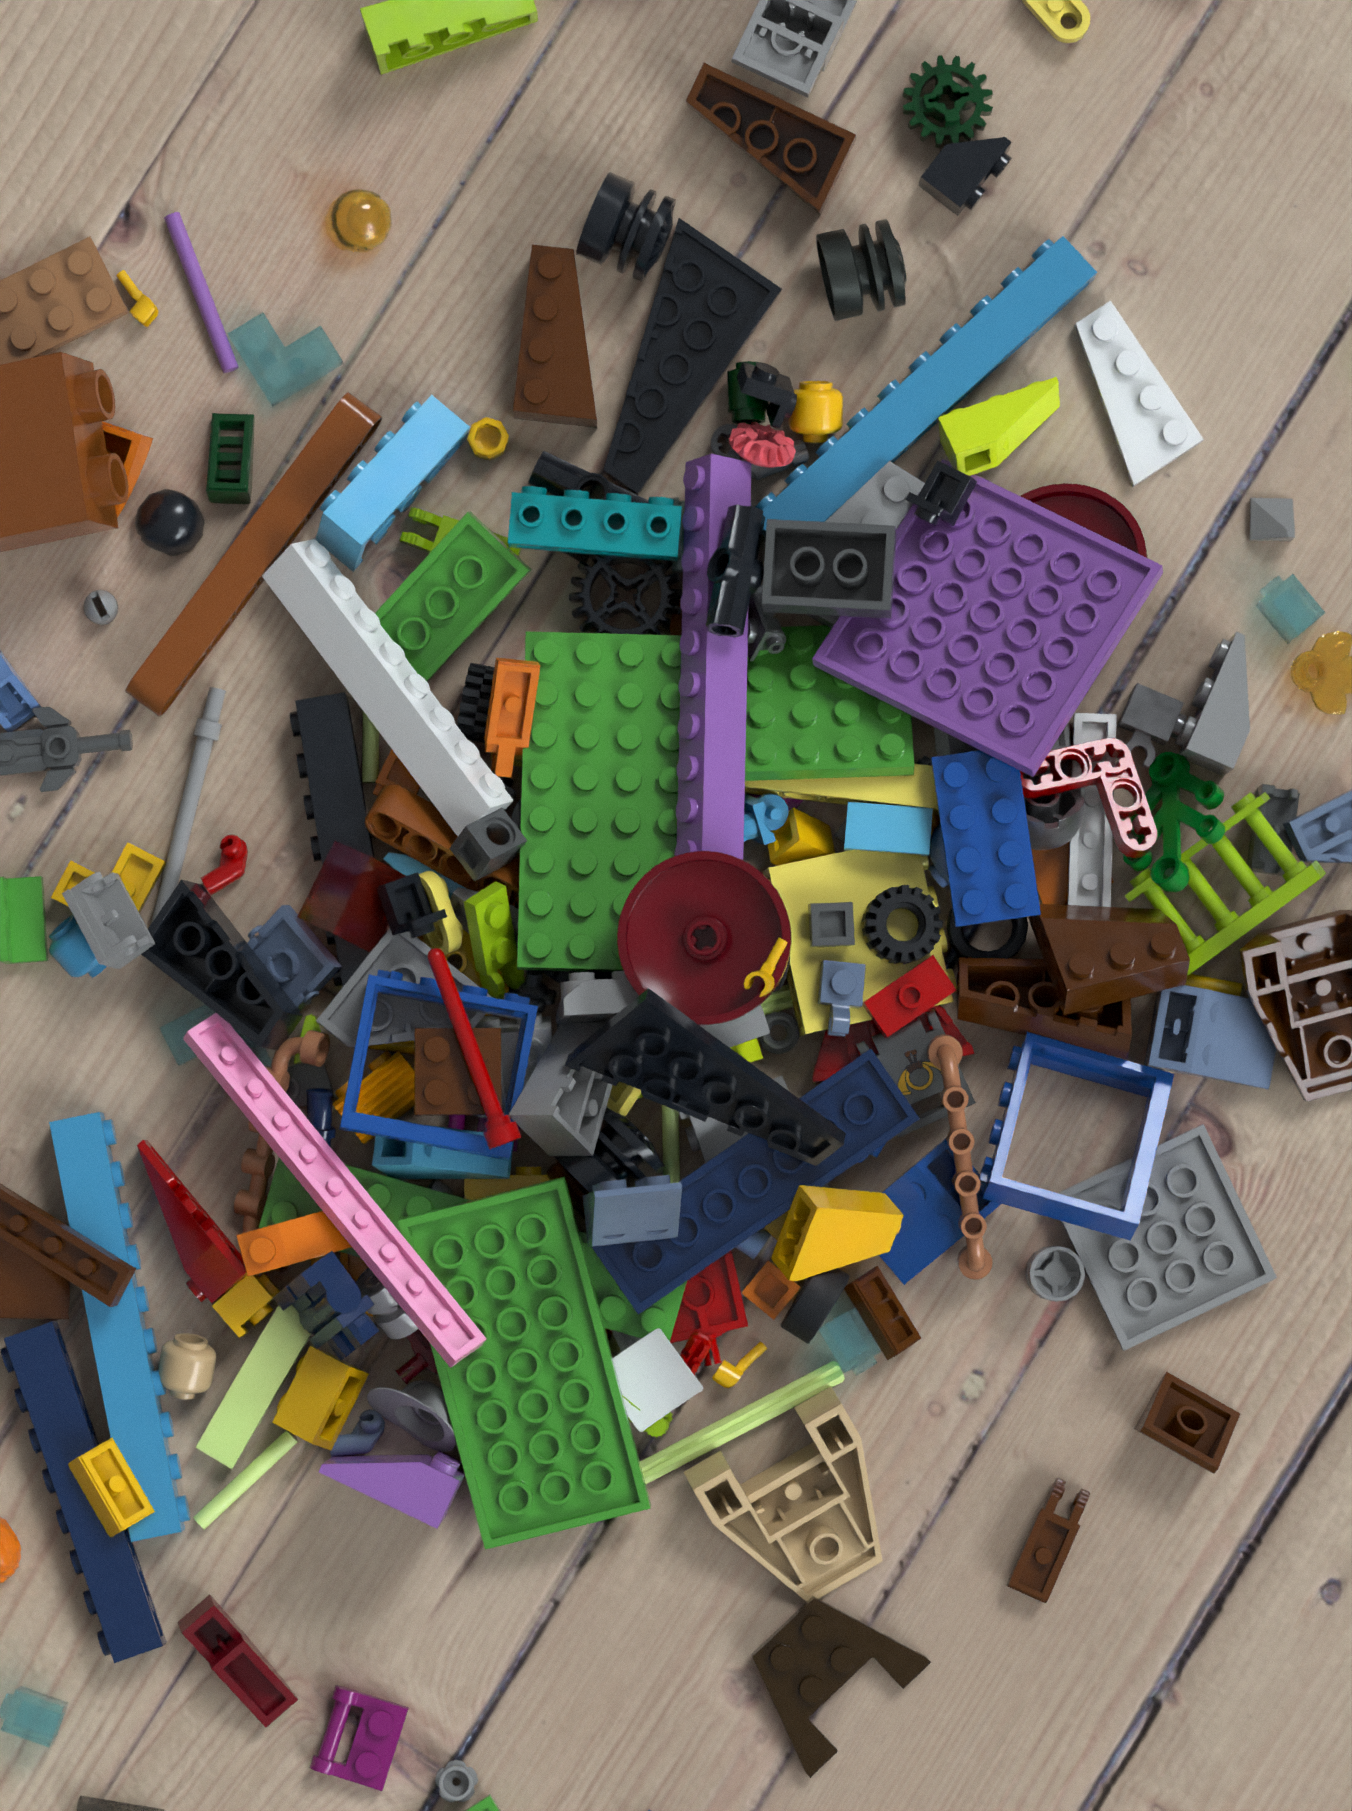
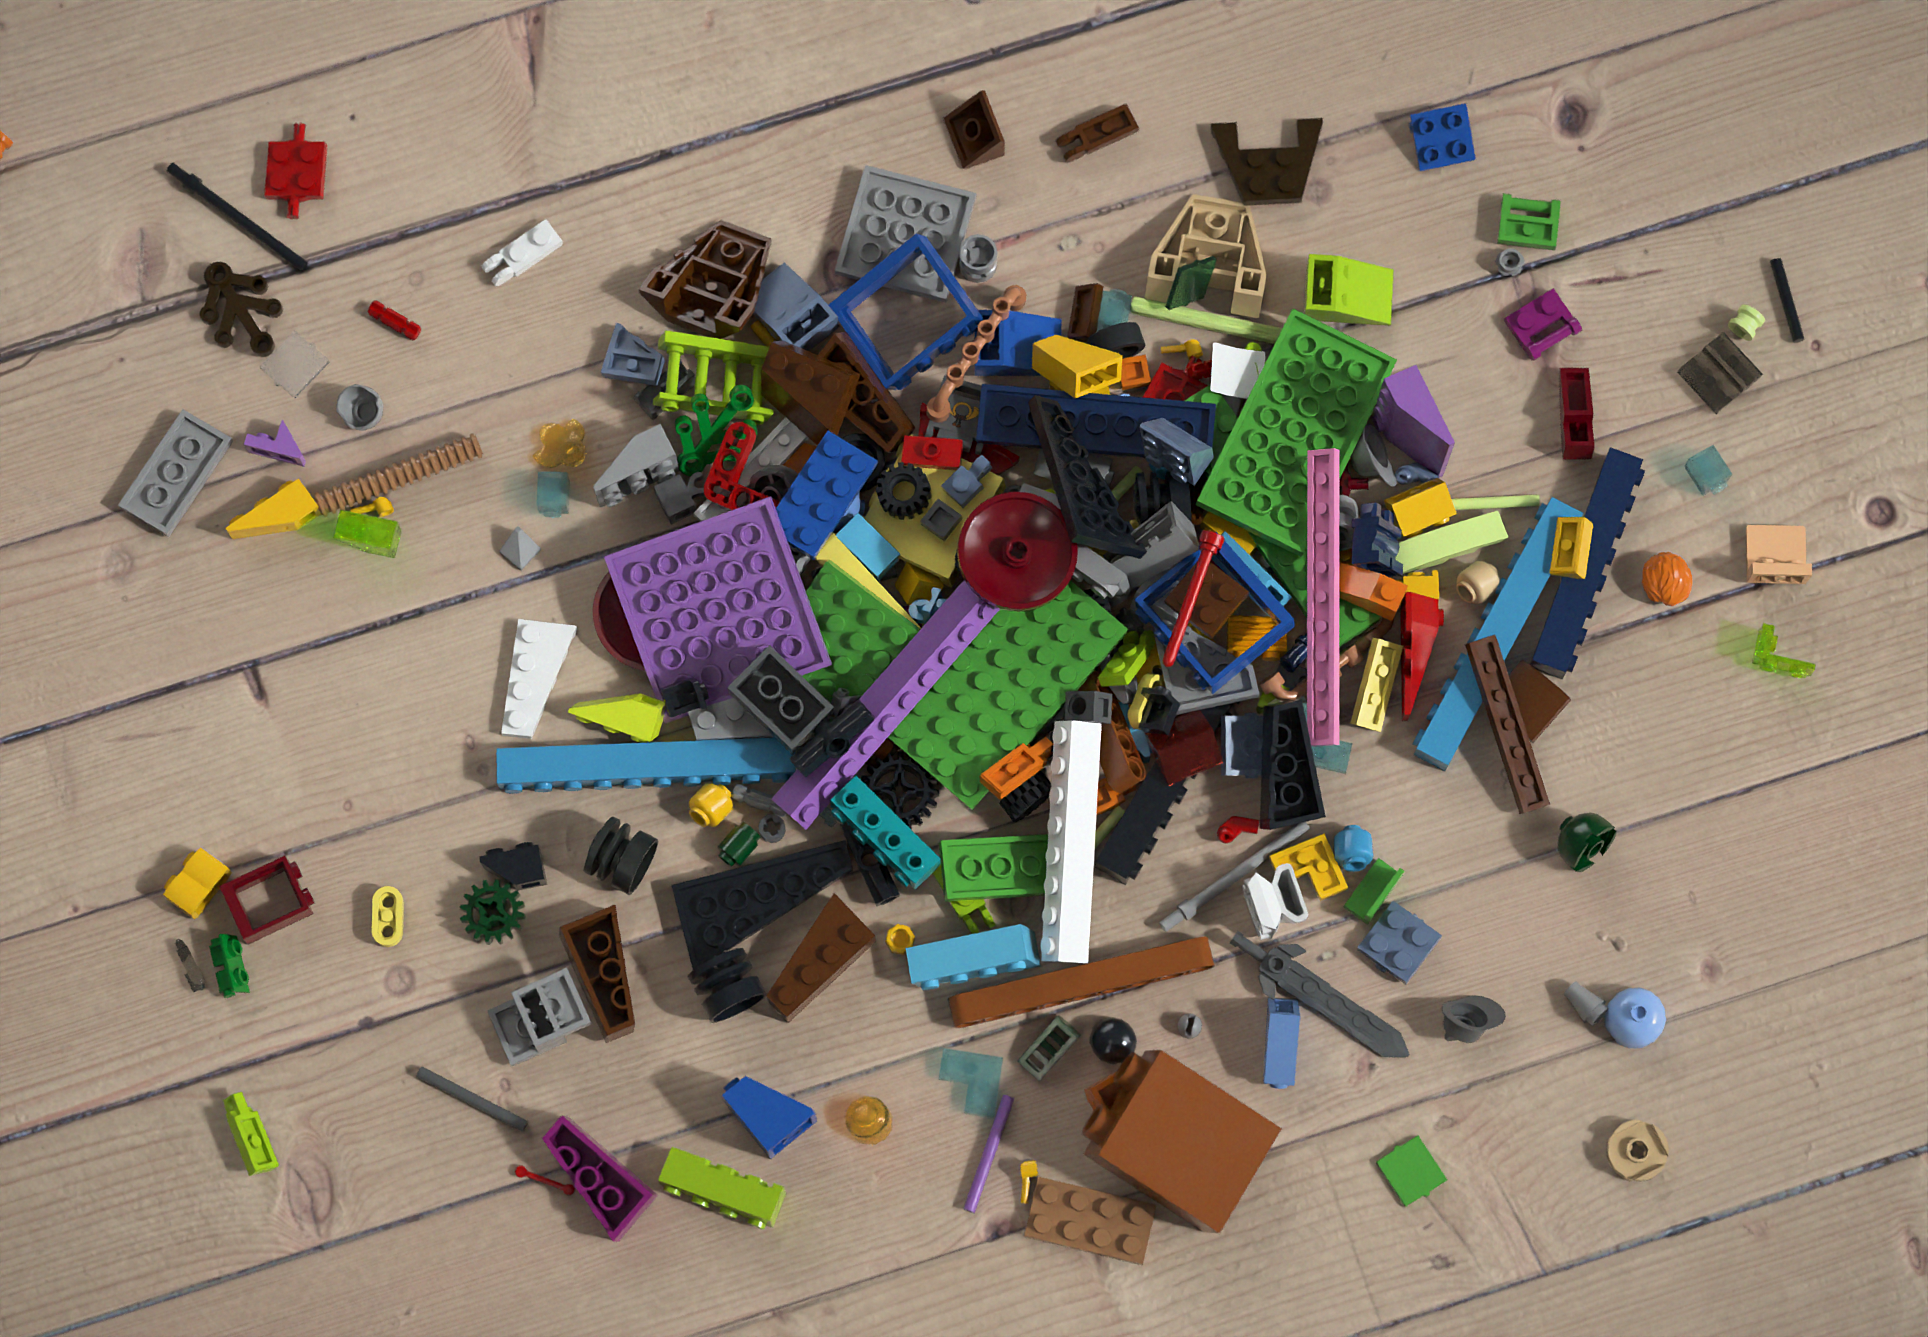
camera: 135 degrees left, 10 degrees down
(108, 919) = (1326, 842): light grey hinge -> none
(112, 808) = (1274, 902): none -> white piece
(203, 1151) = (1376, 684): none -> light yellow plate
(466, 127) = (767, 1114): none -> blue slope
(607, 1588) = (1348, 291): none -> lime slope
(762, 445) = (757, 795): coral gear -> none
(767, 384) = (726, 829): black bracket -> none
(767, 968) = (1001, 503): yellow hand -> none
(789, 1442) = (1190, 282): none -> clear green piece

